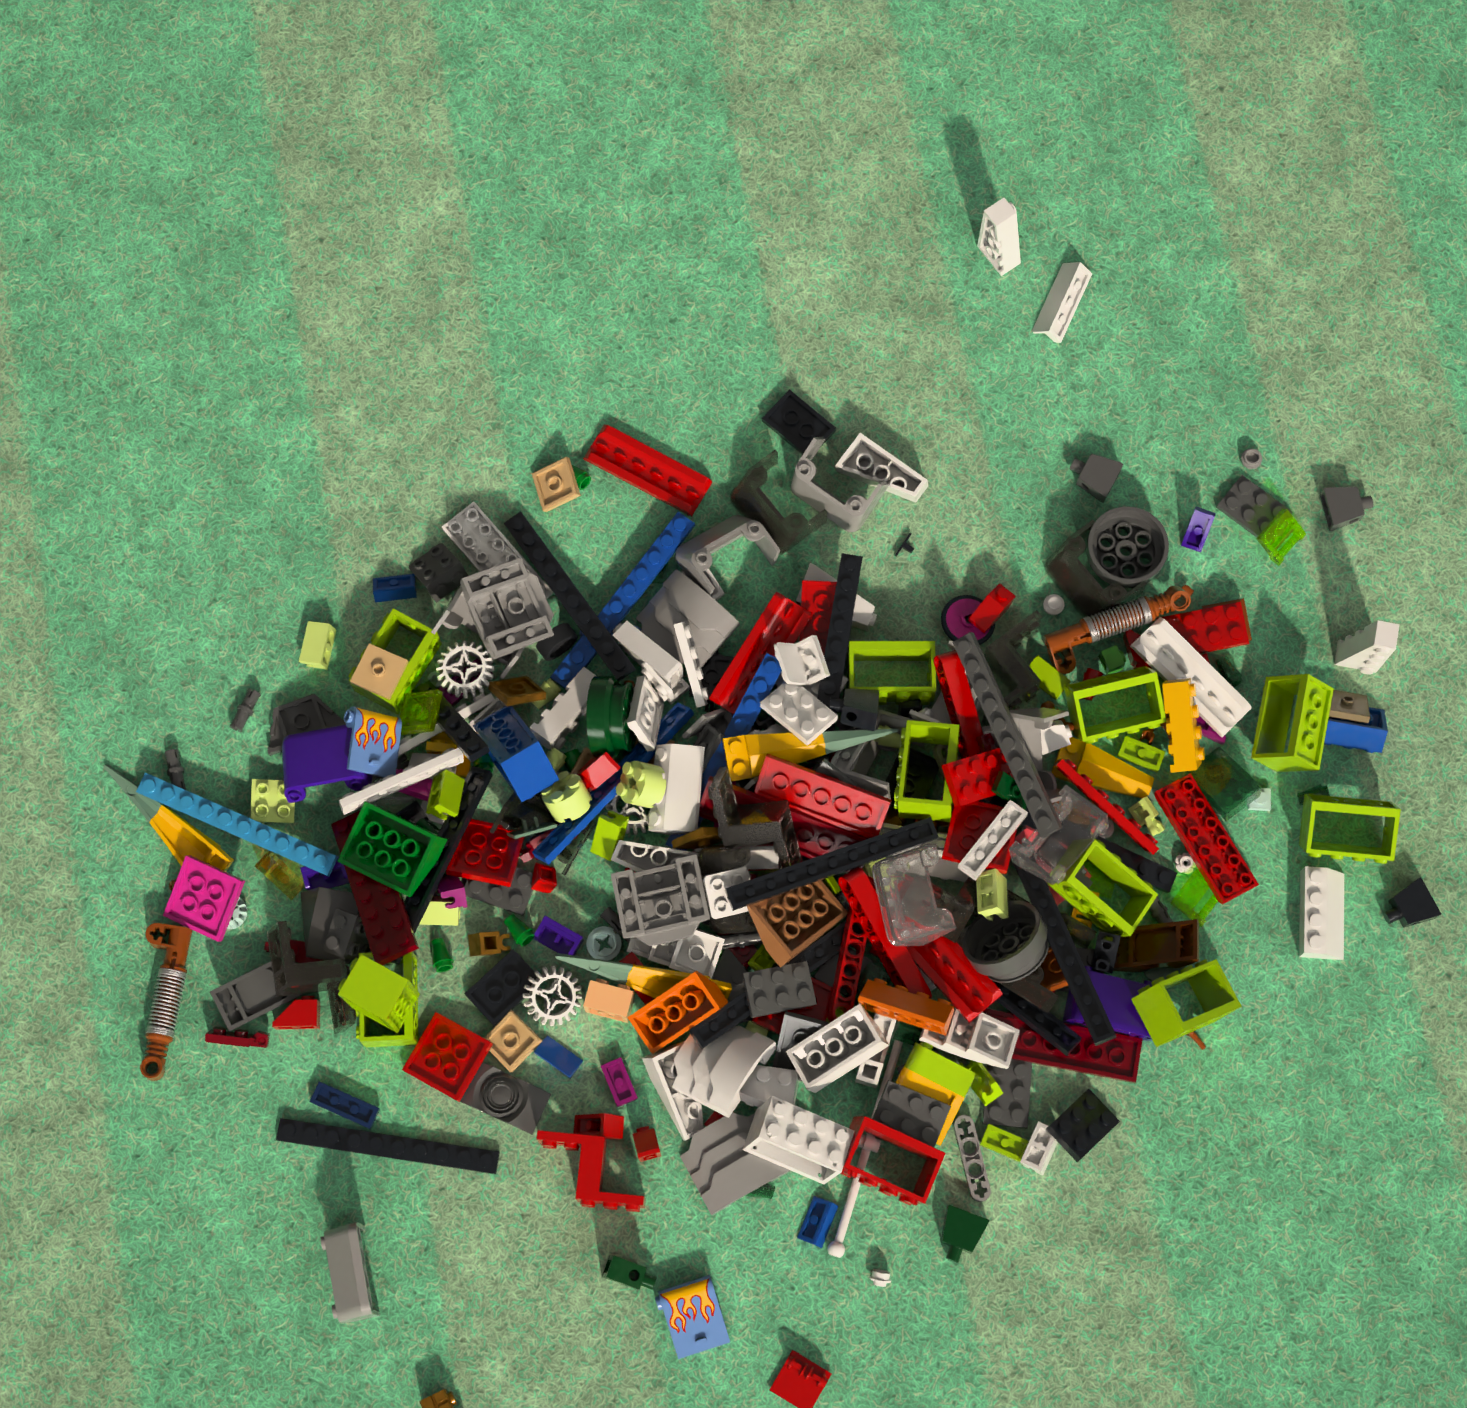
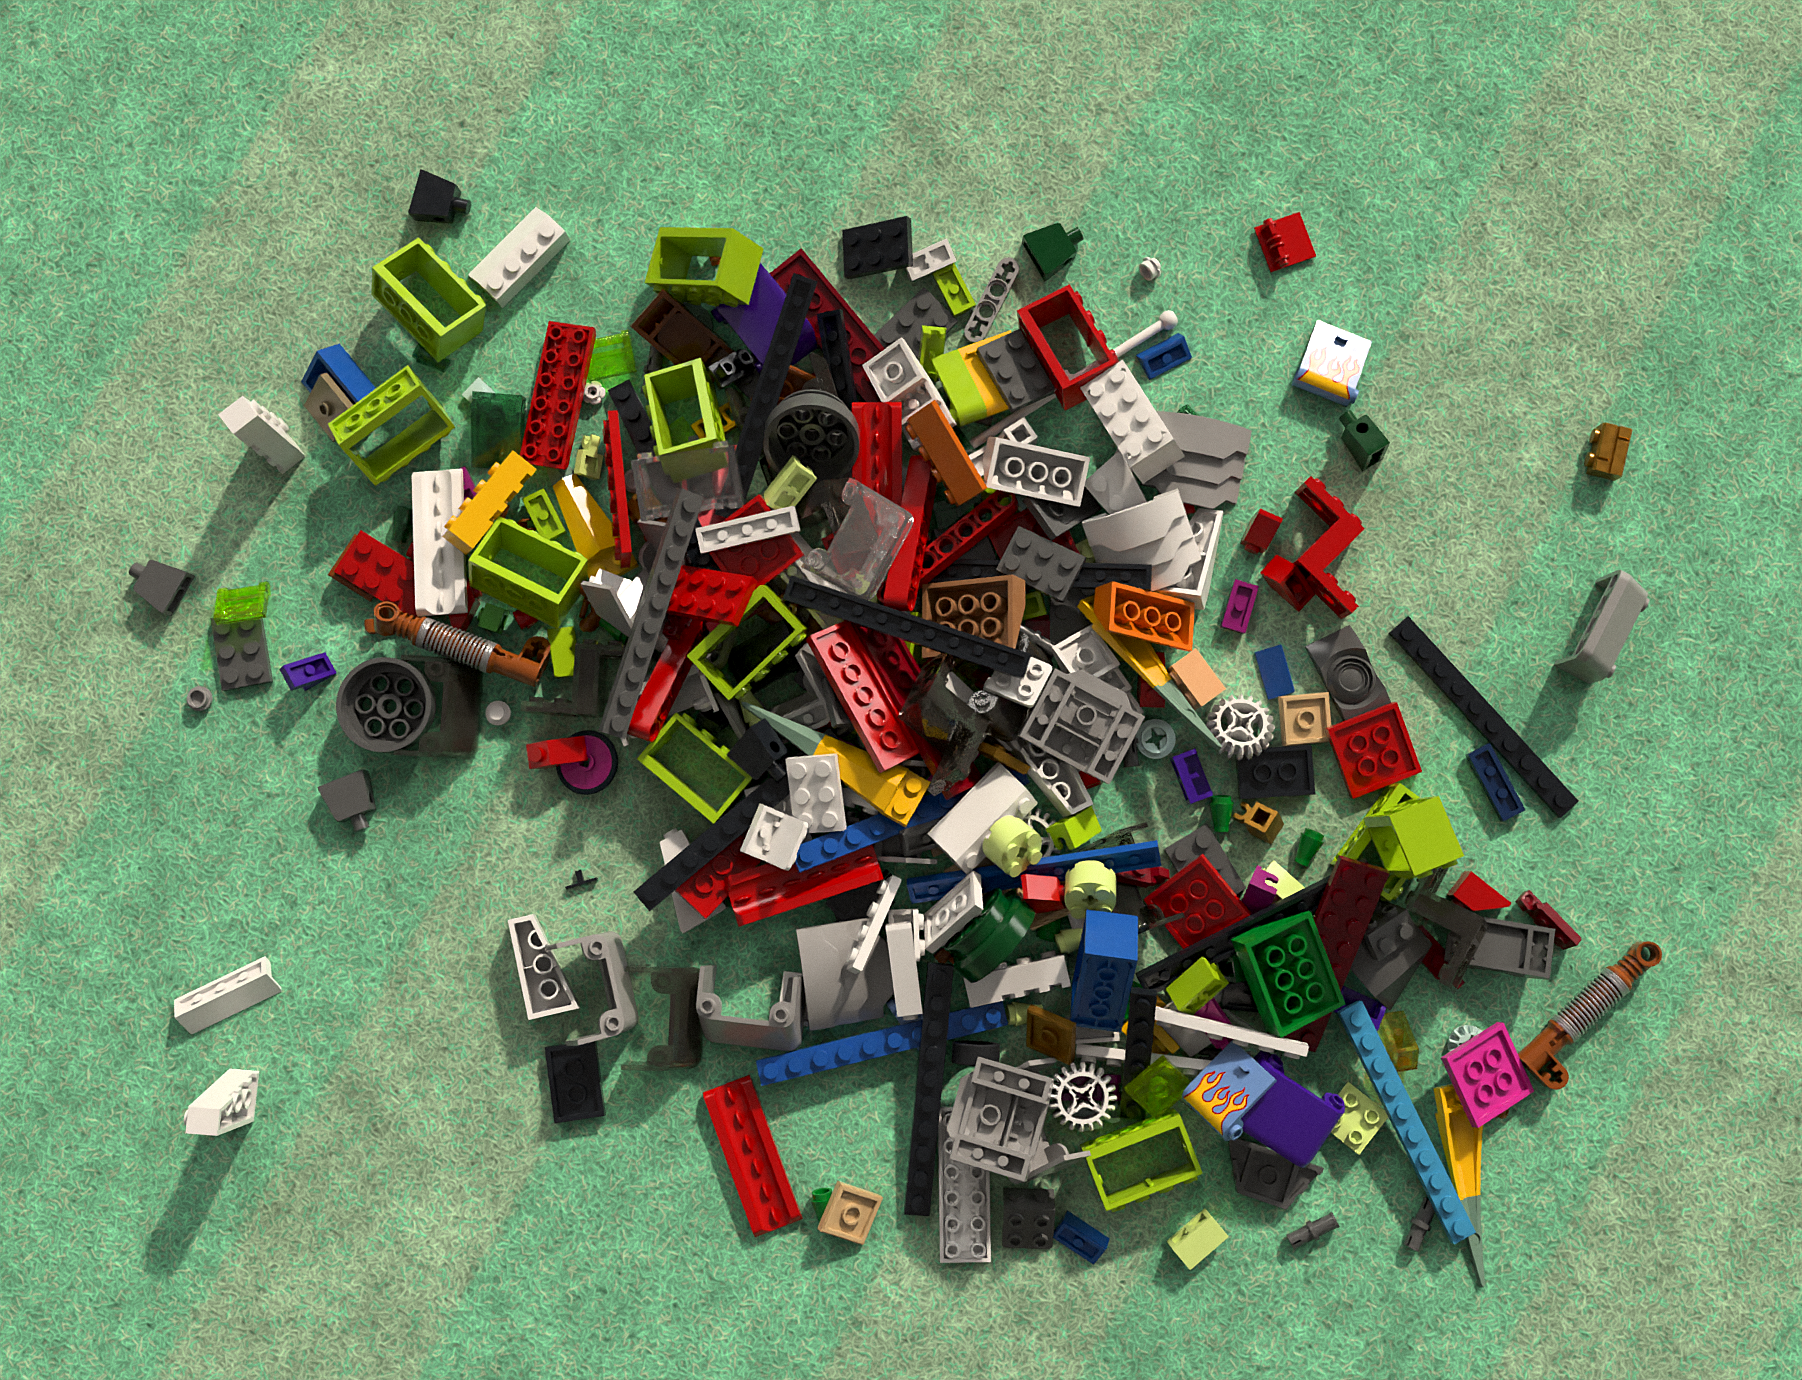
camera: 135 degrees left, 10 degrees up
(379, 671) = (1168, 1156): tan plate -> none
(525, 831) = (1142, 889): sand green piece -> none
(543, 878) = (1166, 839): red slope -> none
(1007, 789) = (694, 564): dark green plate -> none

